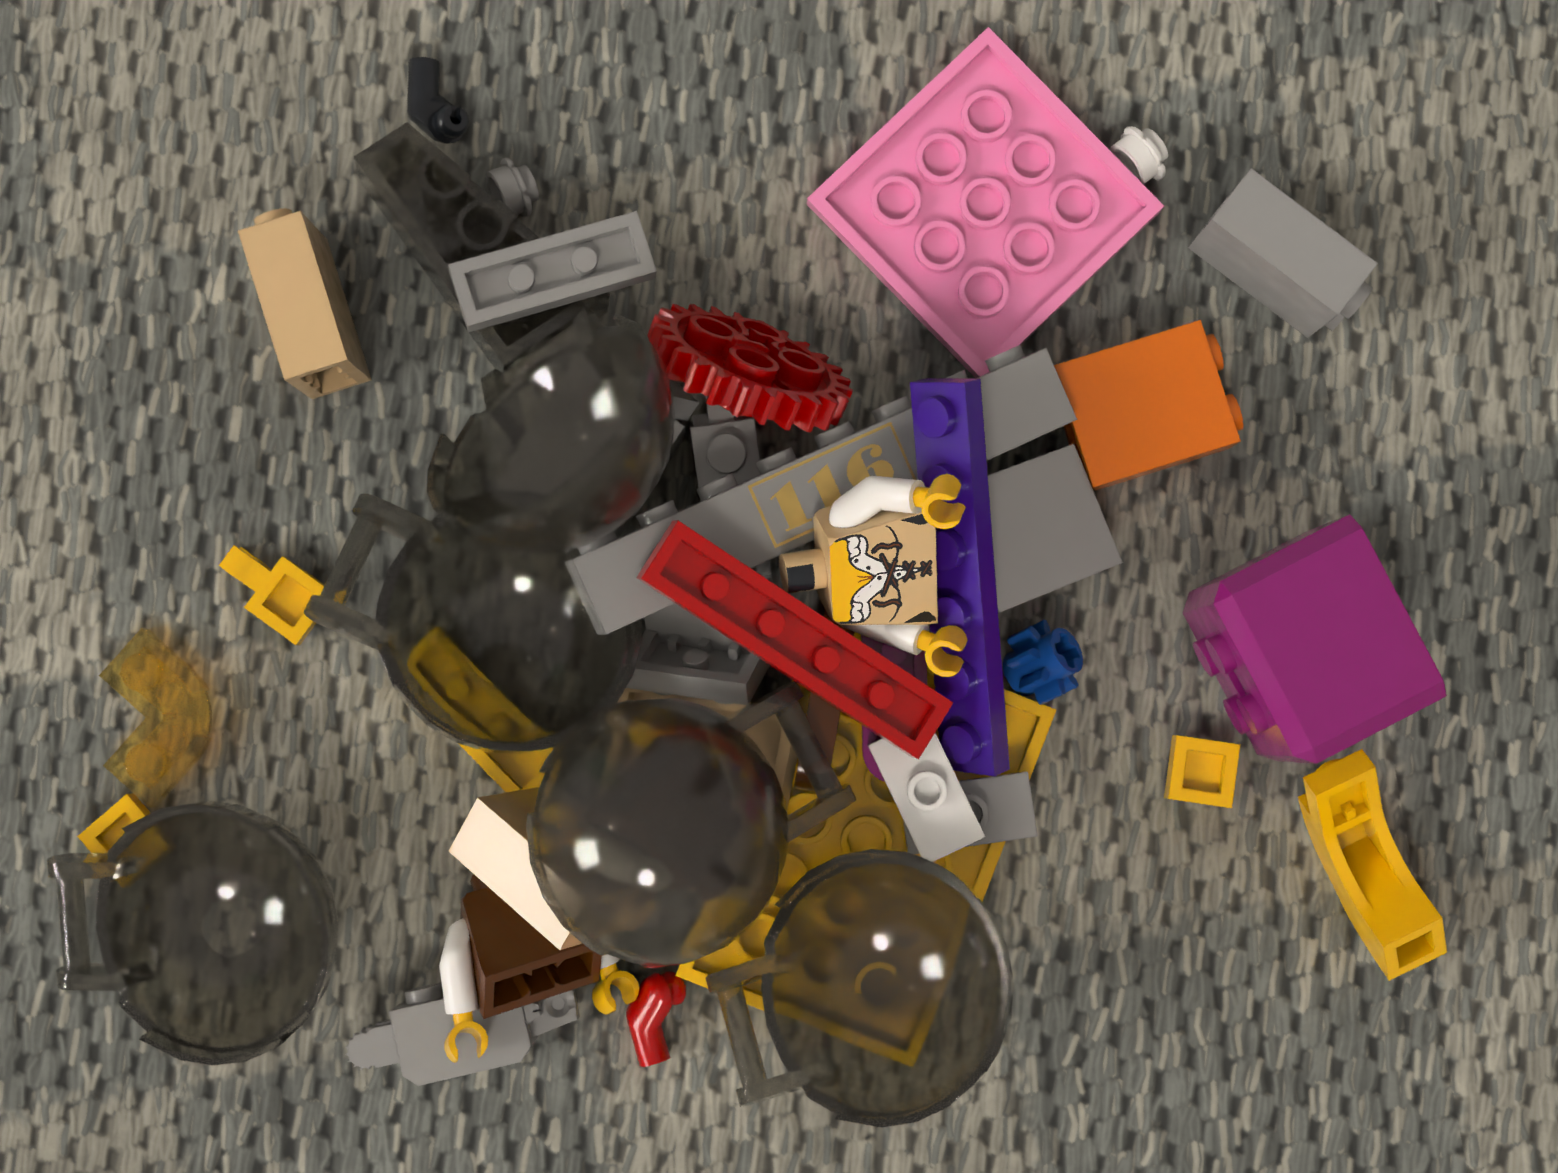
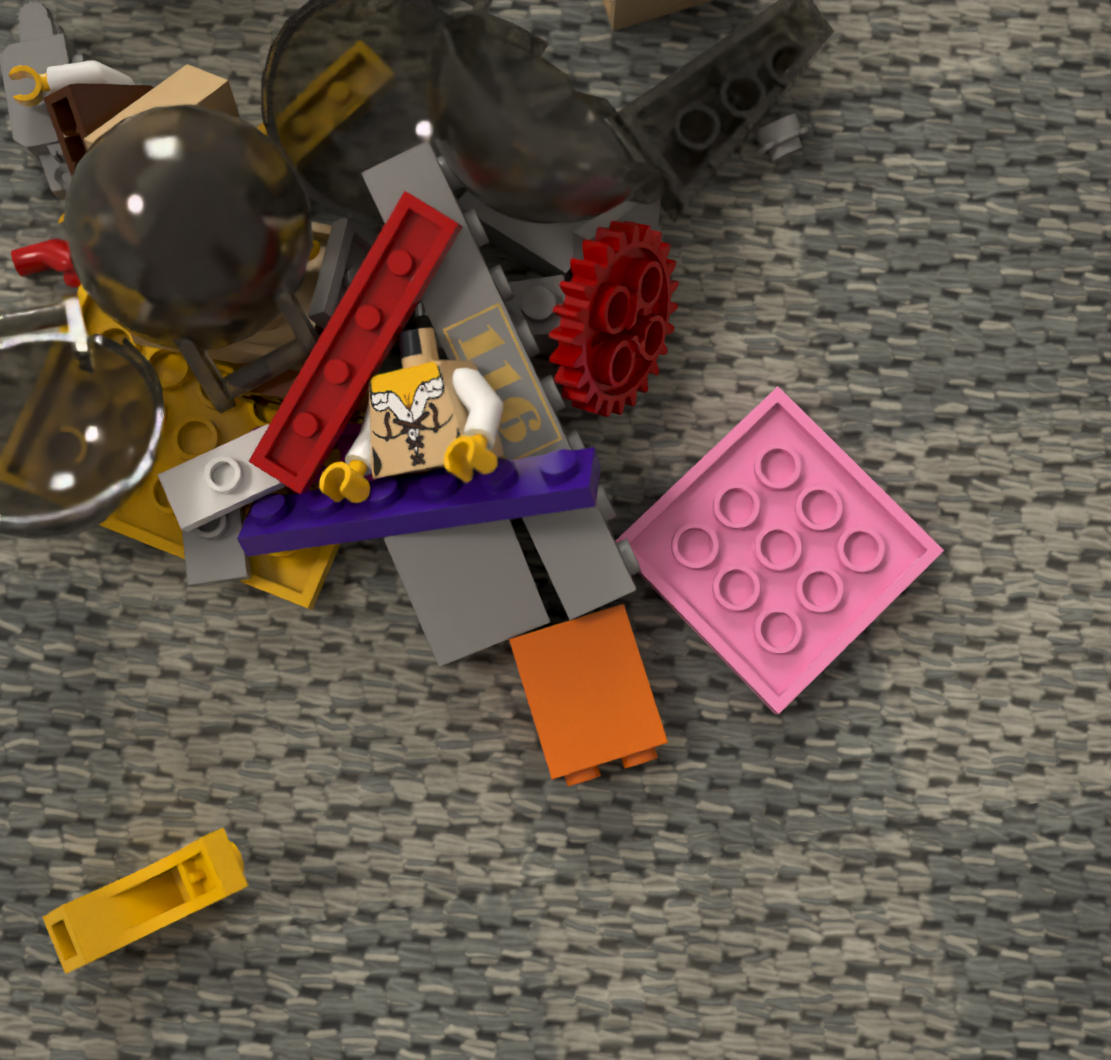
camera: 90 degrees right, 5 degrees down
(428, 108) = (852, 69): black arm -> none
(552, 271) = (700, 146): light grey plate -> none
(1042, 662) = (351, 596): blue gear -> none
(1141, 153) = (828, 694): white plate -> none
(1202, 771) = (248, 745): yellow plate -> none
(1285, 256) = (731, 824): light grey brick -> none
(1312, 645) = (343, 837): magenta plate -> none

